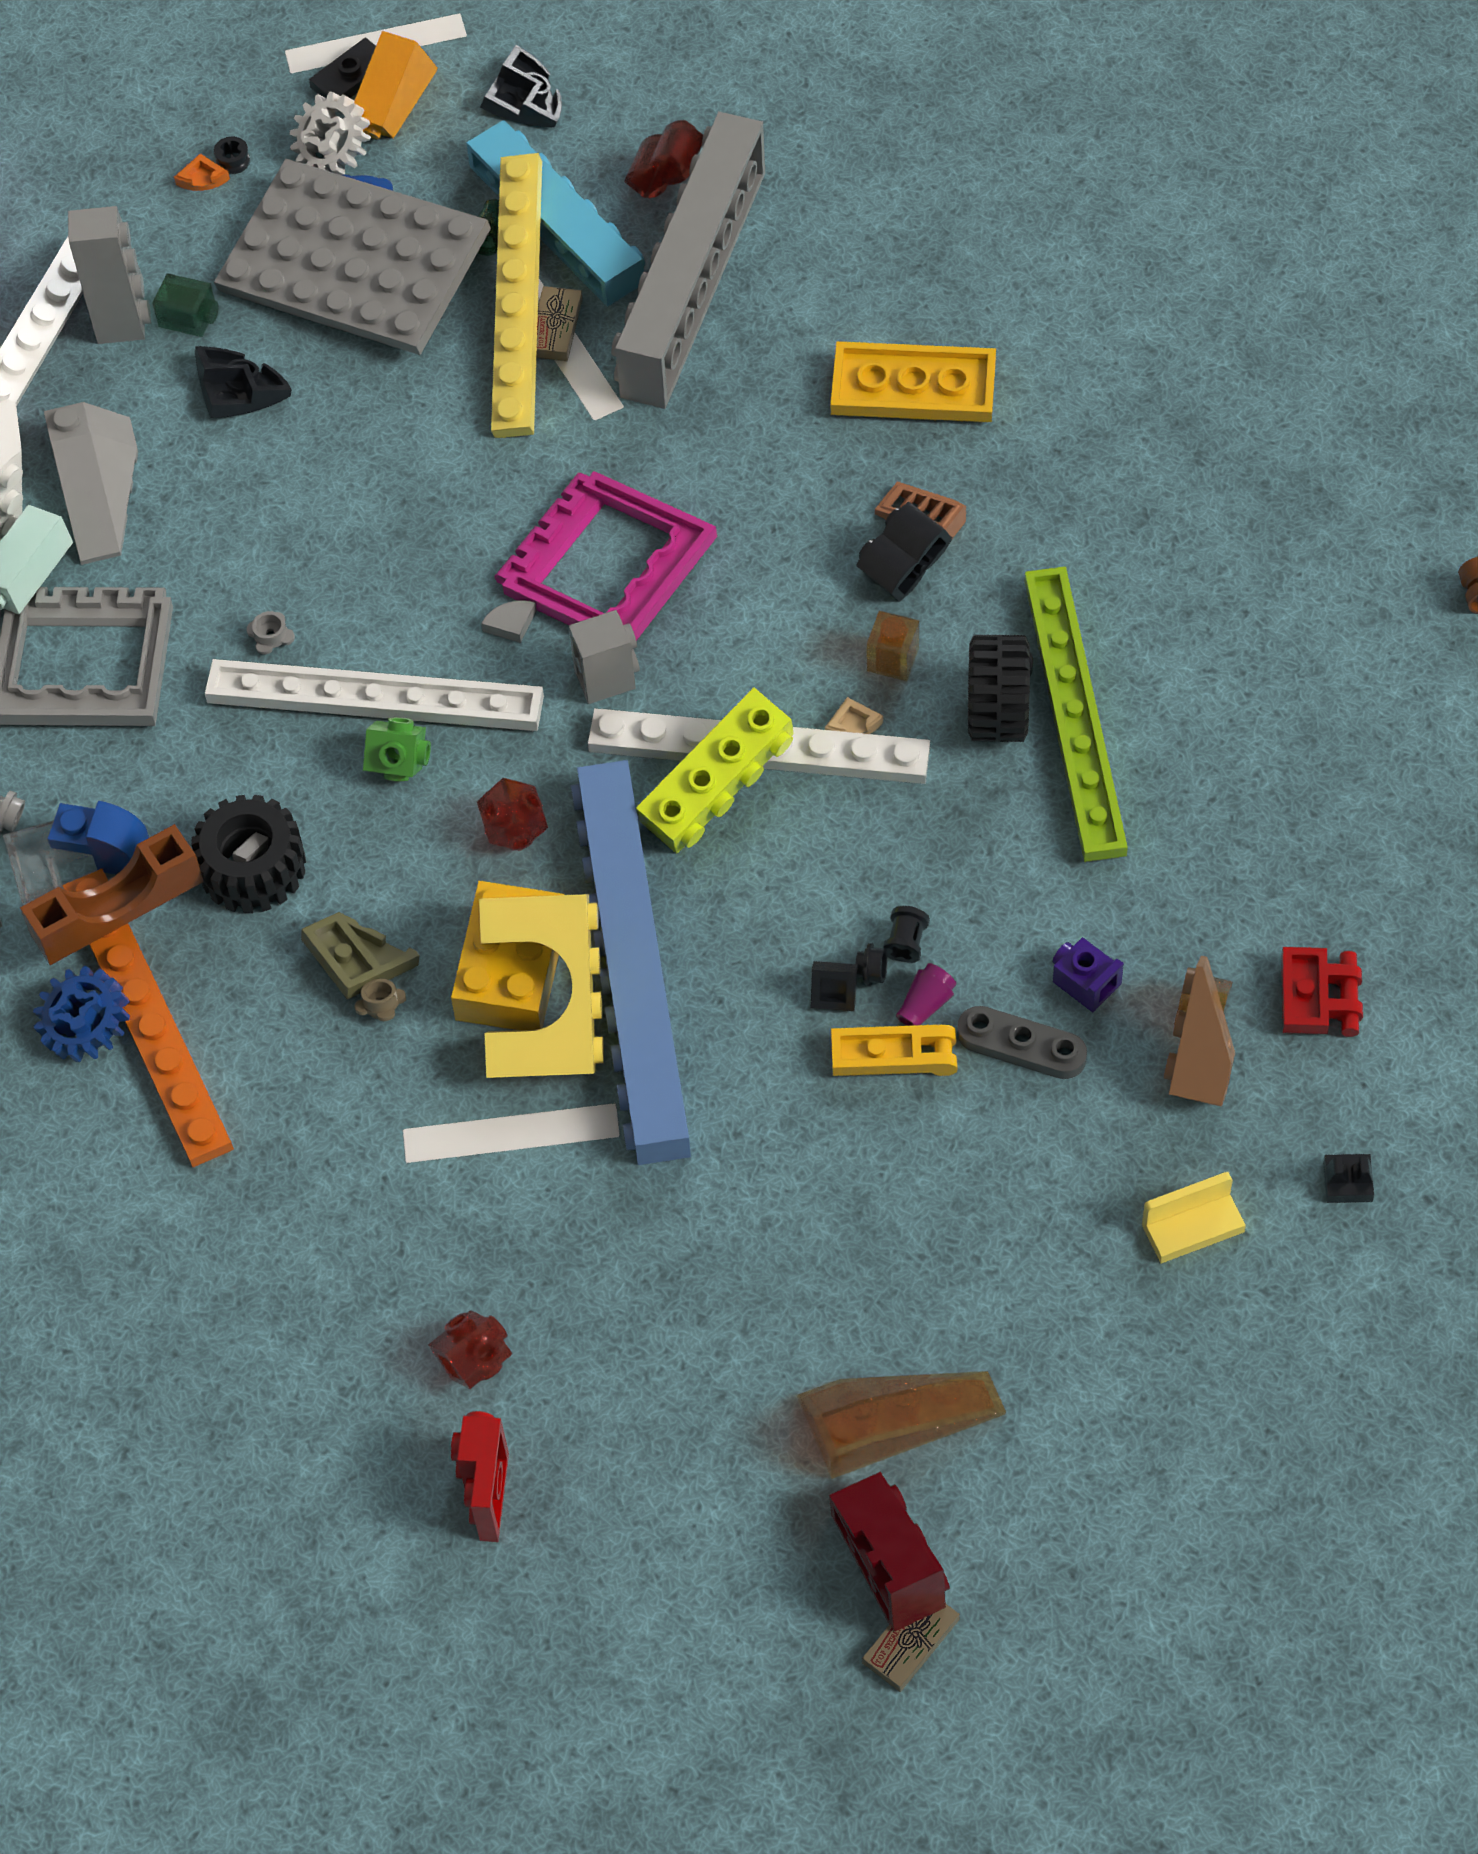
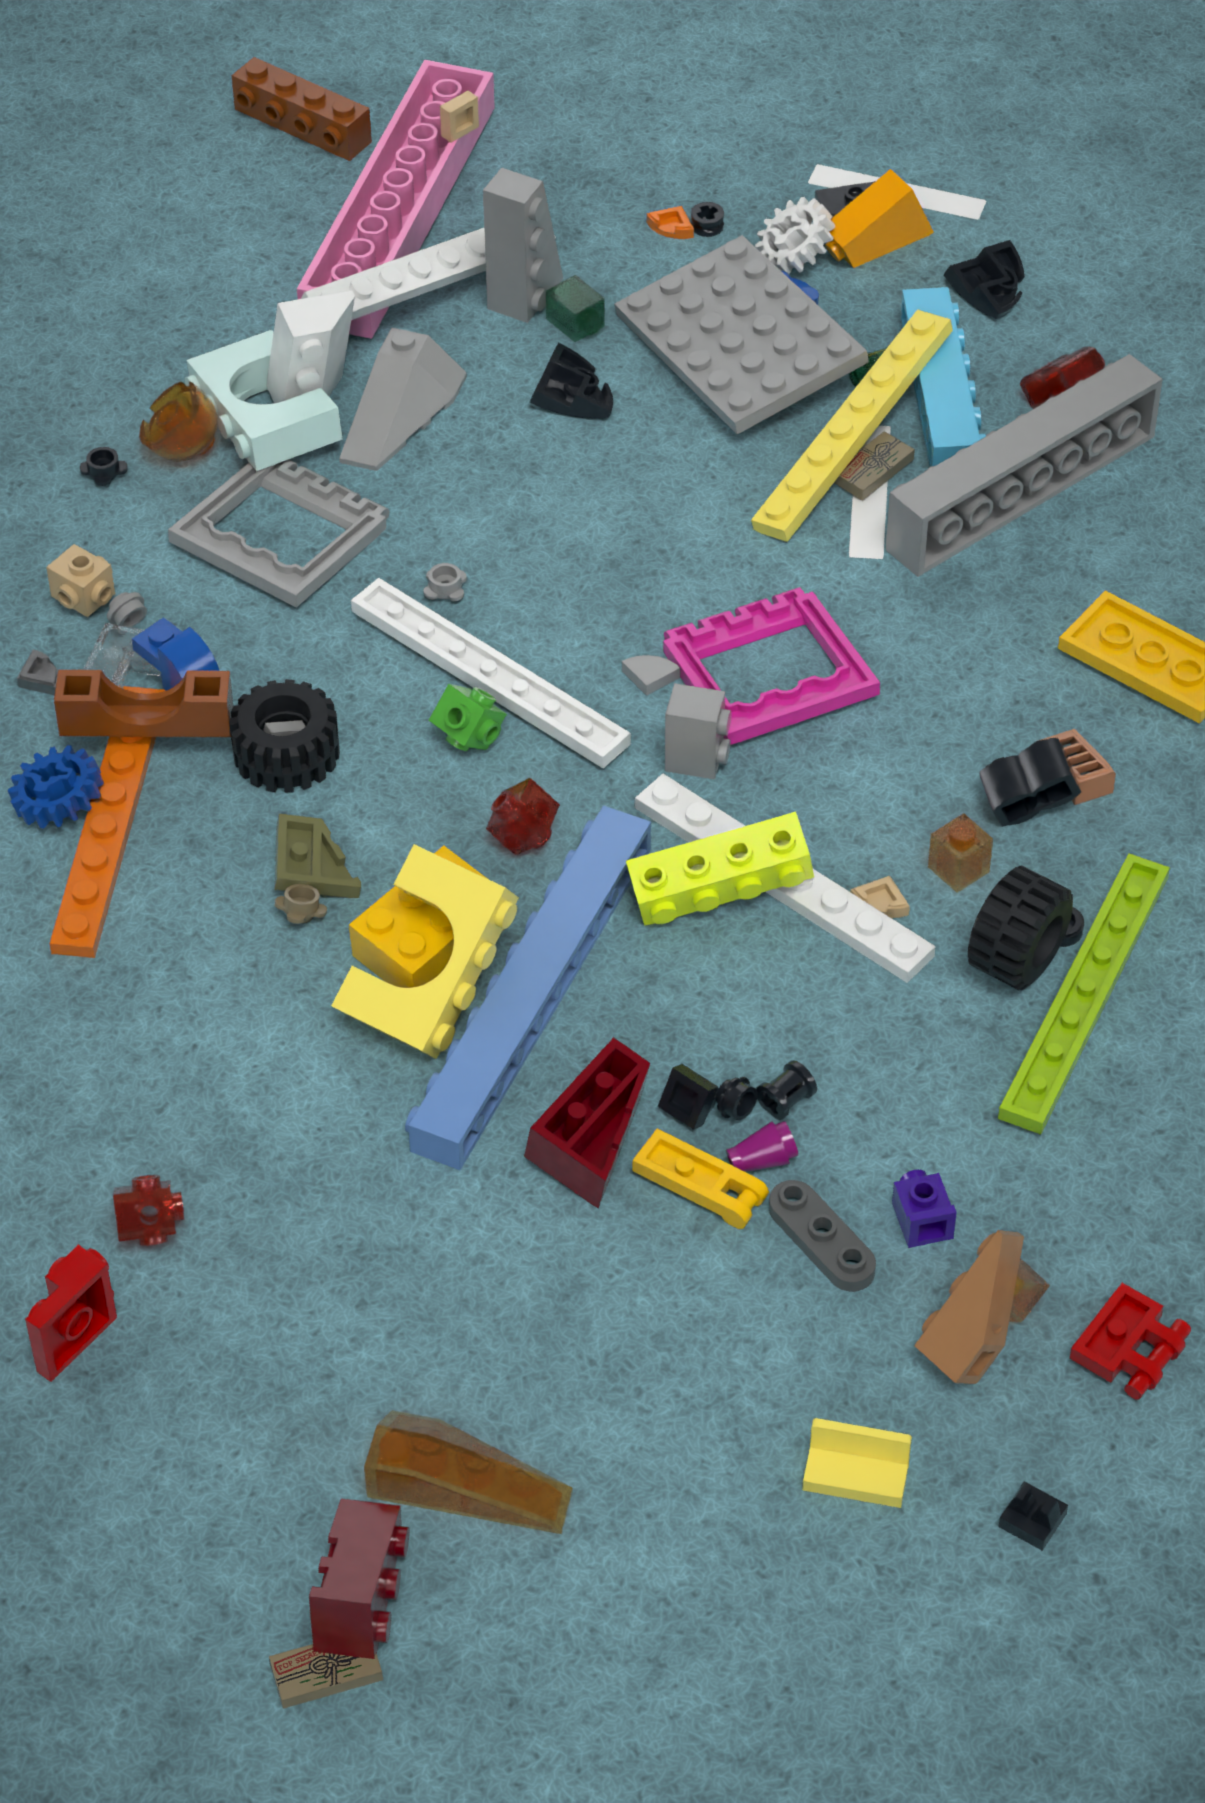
camera: 30 degrees right, 10 degrees down
(510, 1133) = (324, 1067): white sticker -> none
(779, 1057) = (589, 1122): none -> dark red wedge

